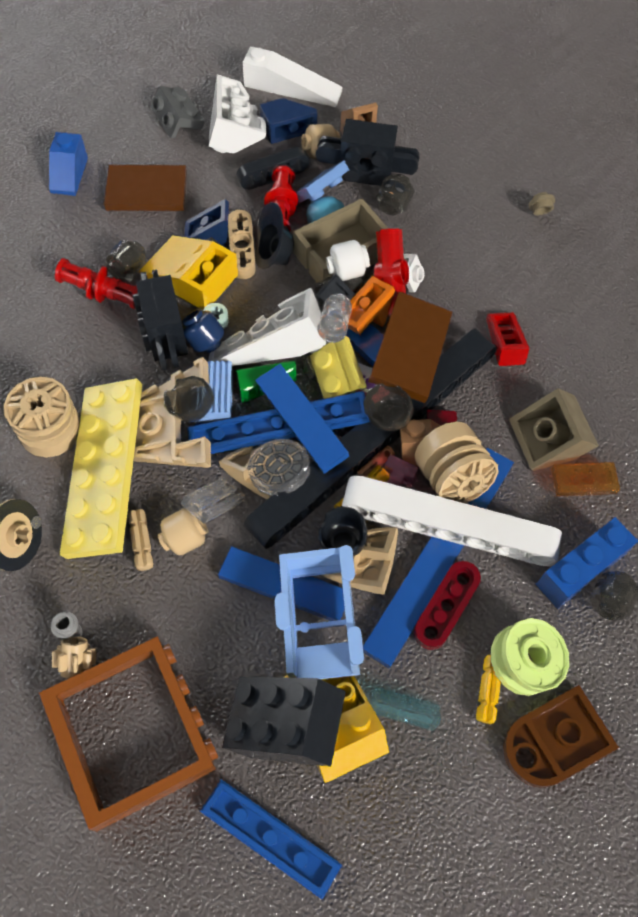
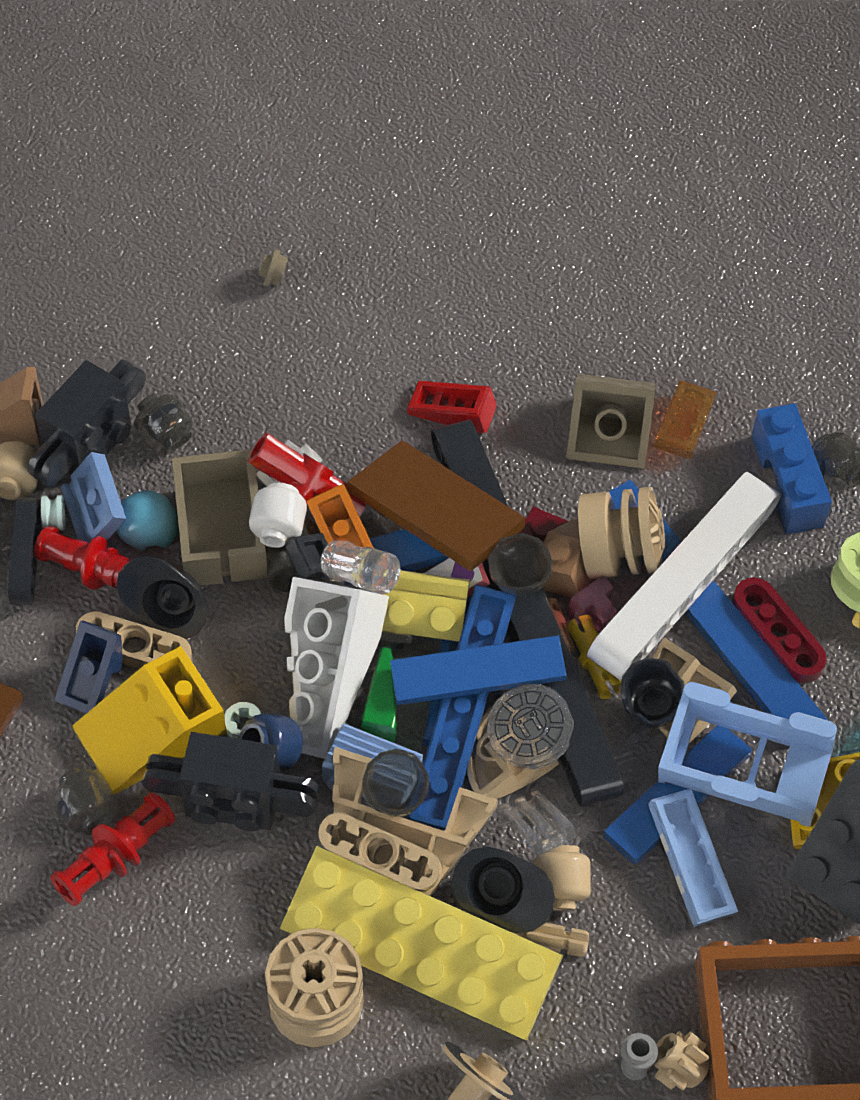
camera: 65 degrees left, 5 degrees down
(153, 425) = (355, 827): none -> tan beam
(154, 496) = (503, 889): none -> black piece
(233, 610) = (692, 857): none -> light blue plate
(304, 170) = (53, 512): none -> light aqua bush

